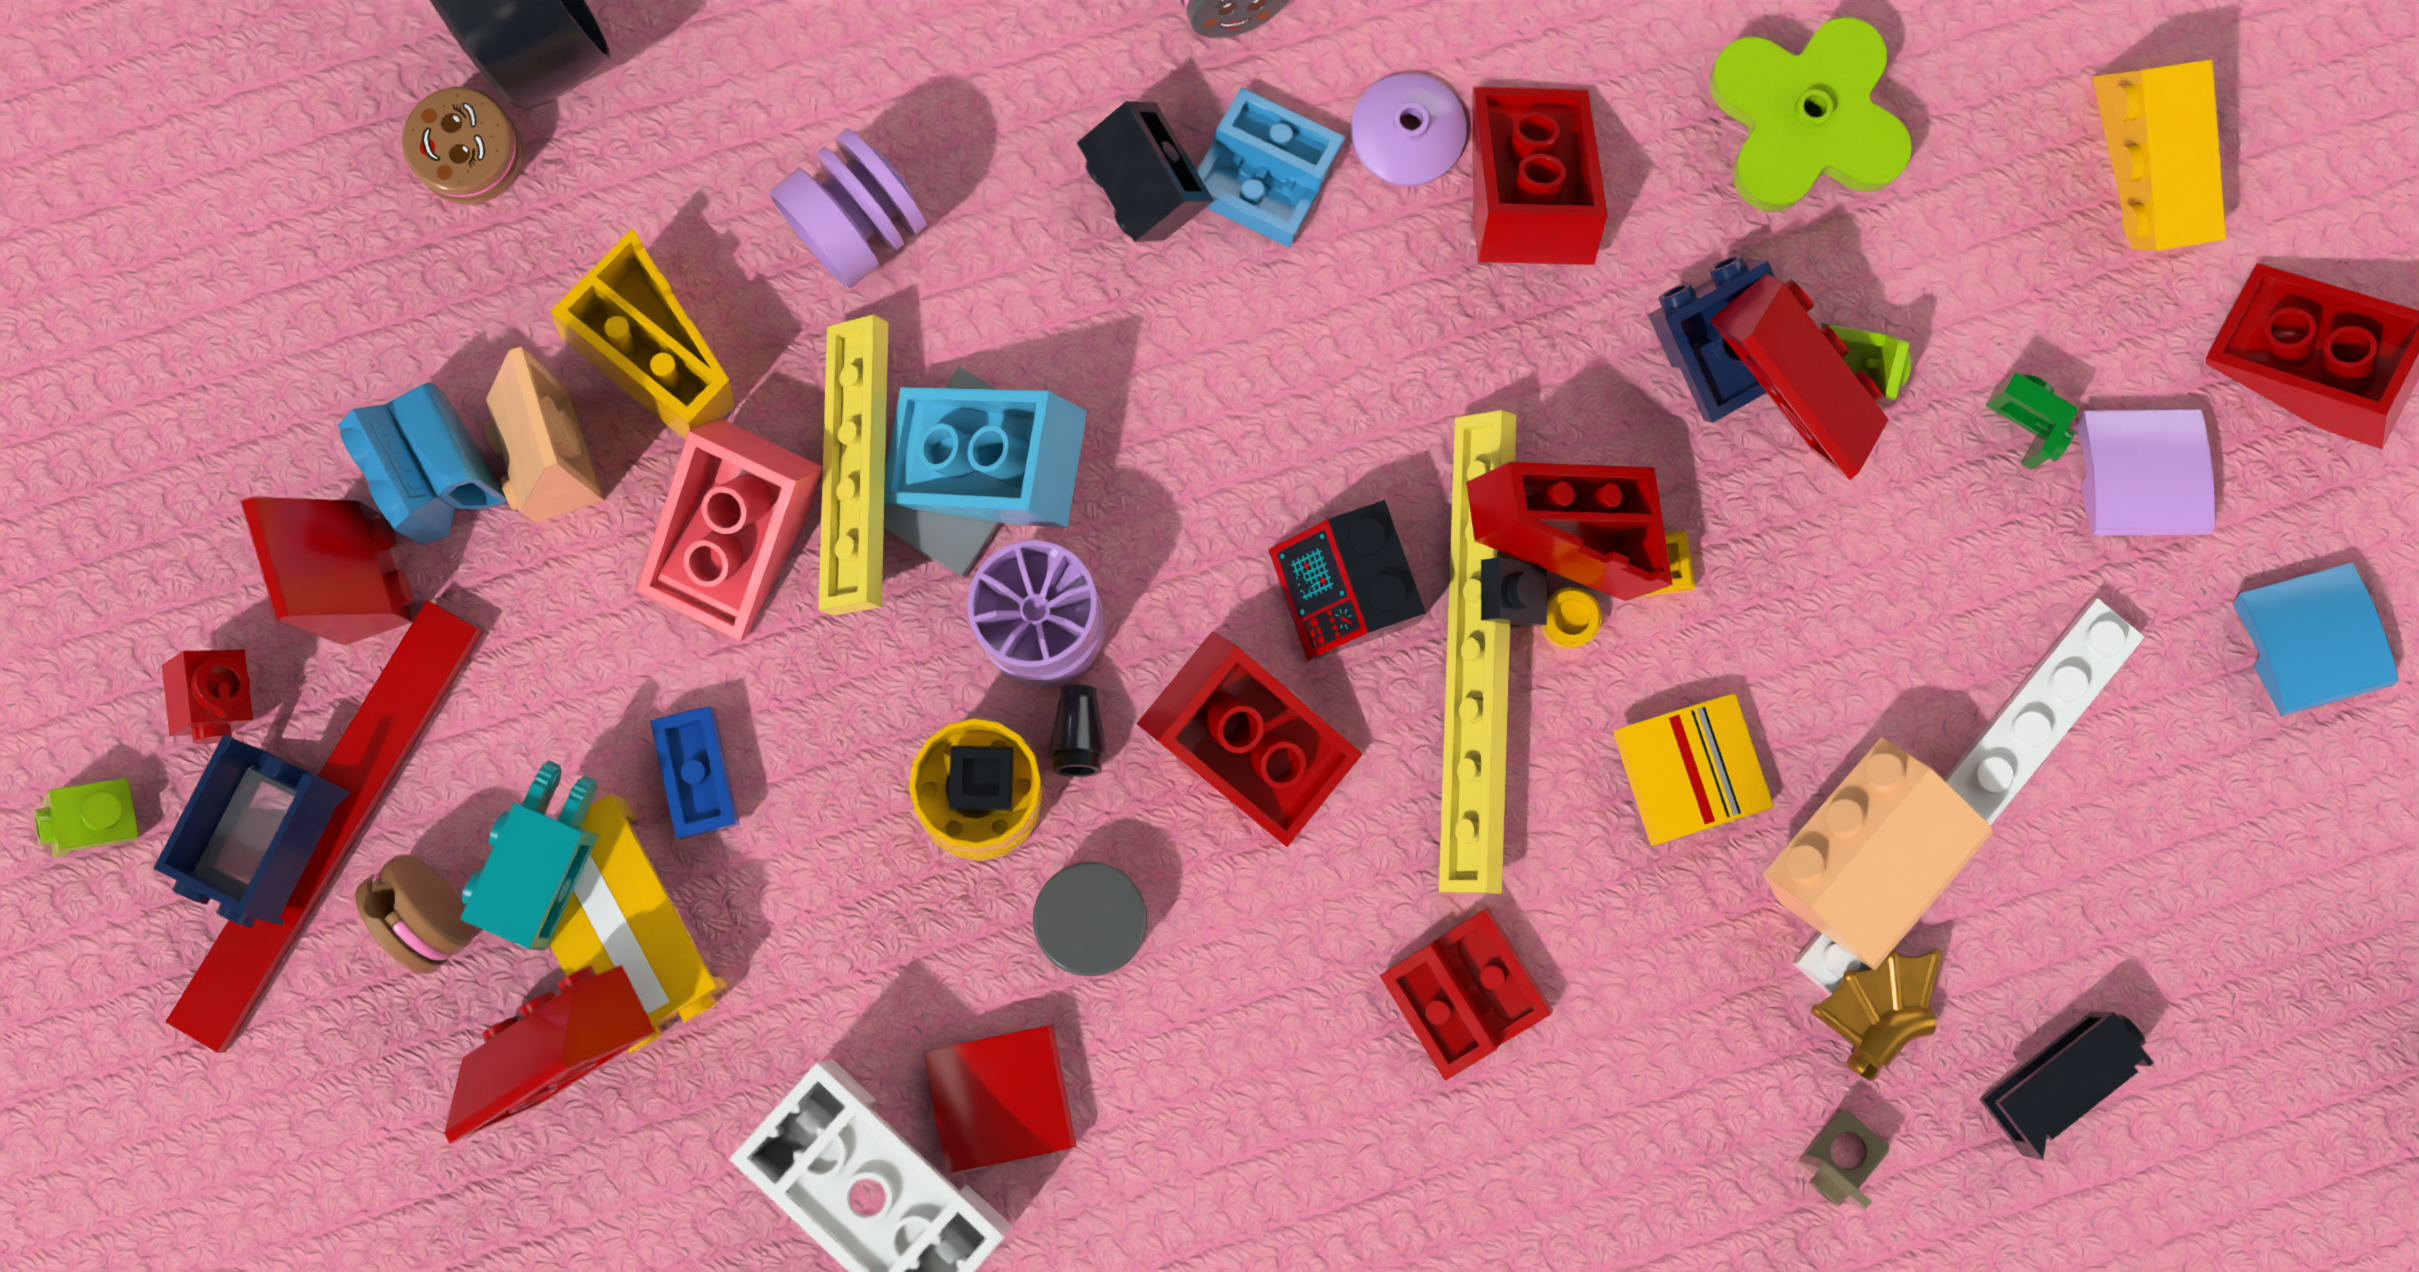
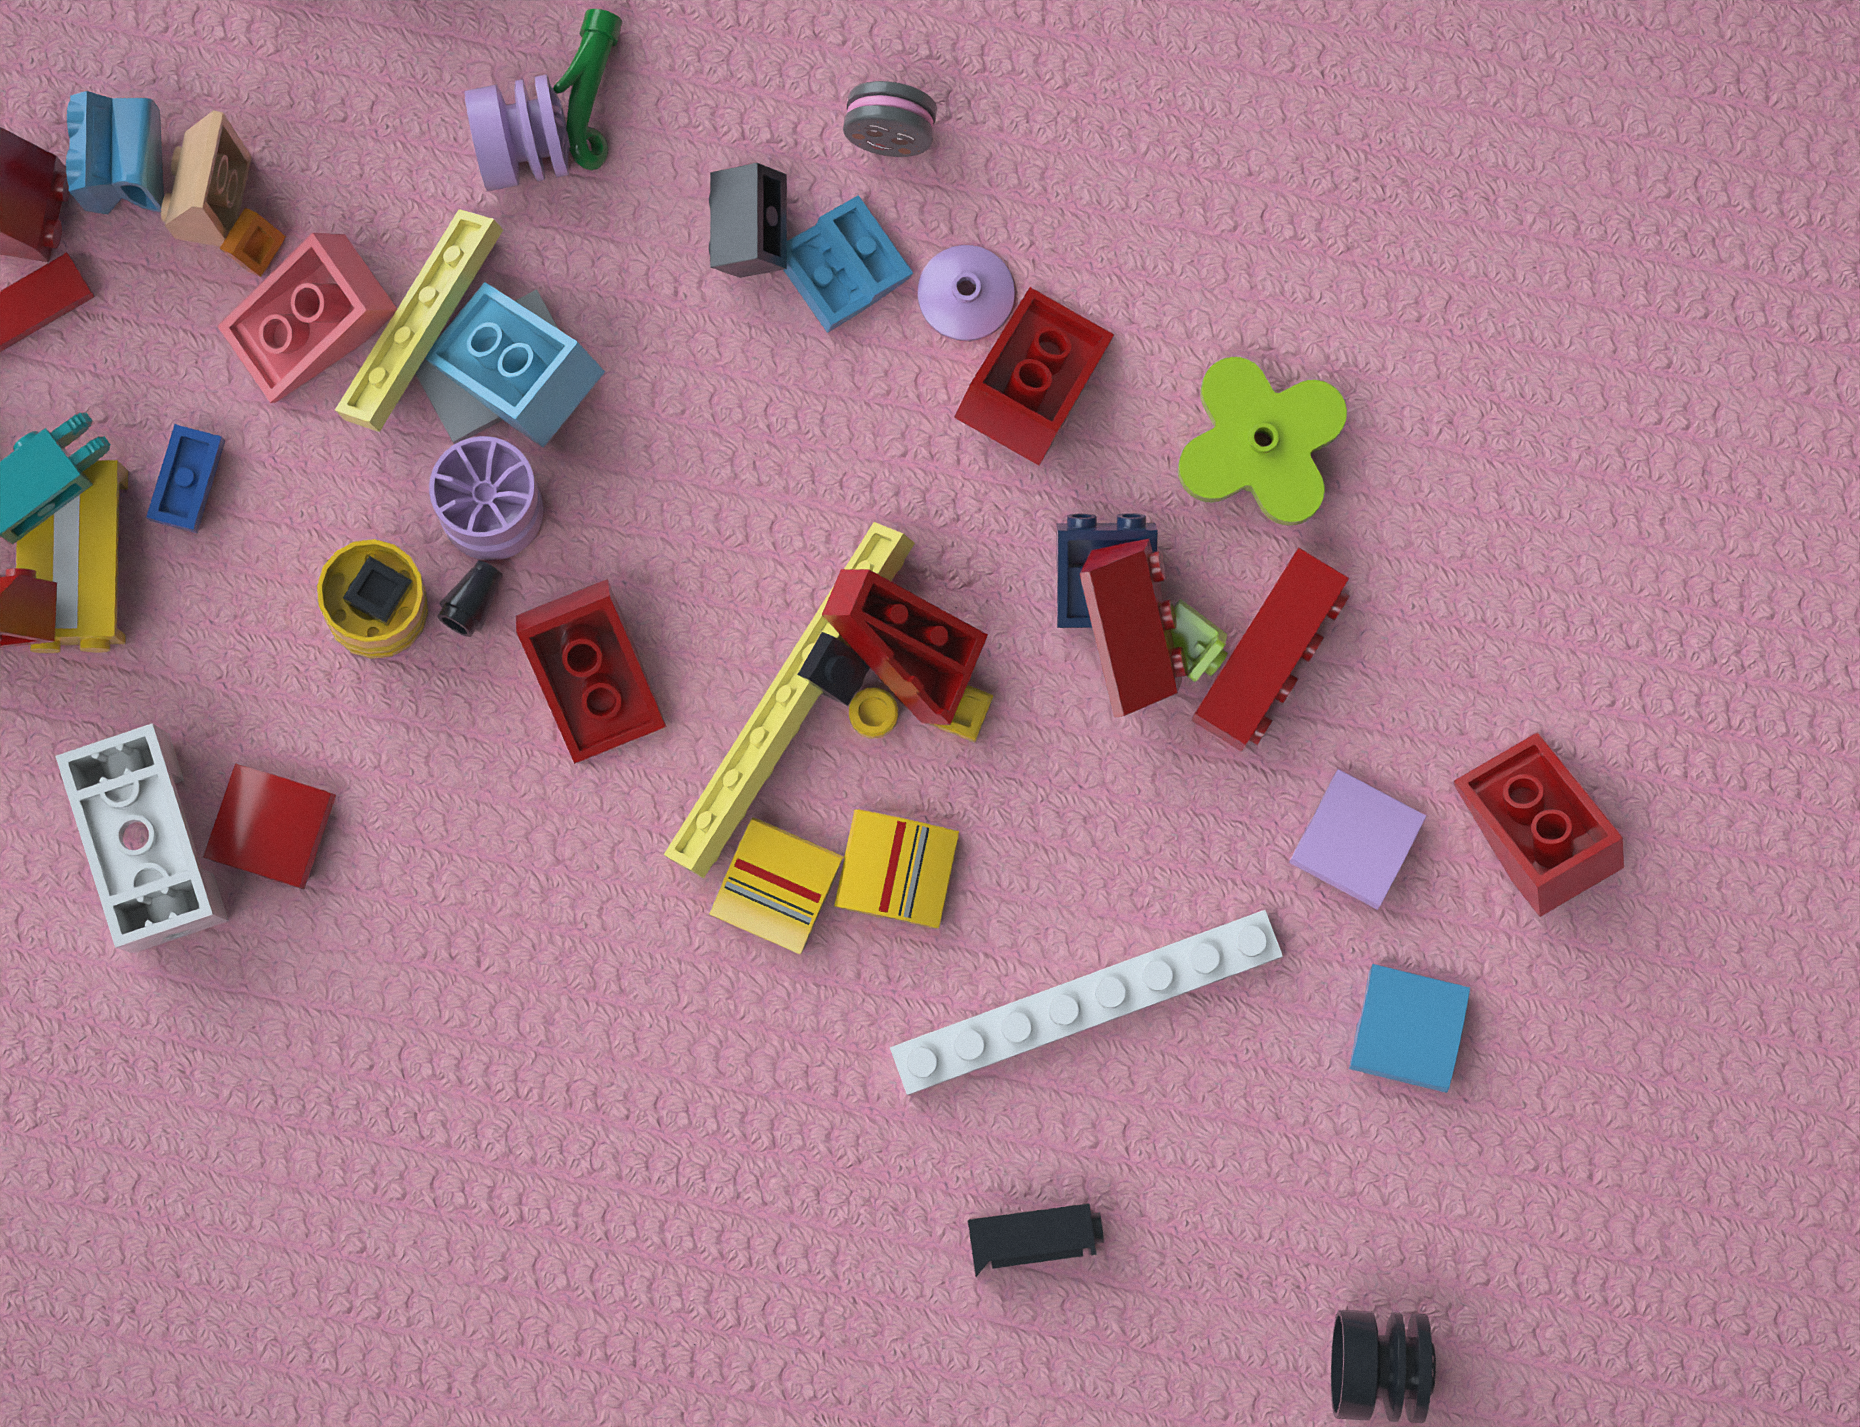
camera: 30 degrees right, 0 degrees up
(624, 479) = (252, 242): none -> orange plate
(643, 340) = (320, 147): yellow wedge -> none
(873, 63) = (599, 34): none -> green plant
(1090, 919) = (404, 736): dark grey head -> none
(1347, 581) = (725, 597): black slope -> none
(1466, 993) = (641, 937): red slope -> none
(1578, 857) = (776, 885): none -> yellow slope
(1839, 1183) = (823, 1211): dark tan bracket -> none
(1877, 853) = (986, 997): light nougat slope -> none
(1882, 1009) = (930, 1112): pearl gold arm -> none
(1947, 324) = (1270, 650): none -> red brick
(2034, 407) = (1300, 742): green bracket -> none
(2164, 153) = (1504, 613): yellow wedge -> none

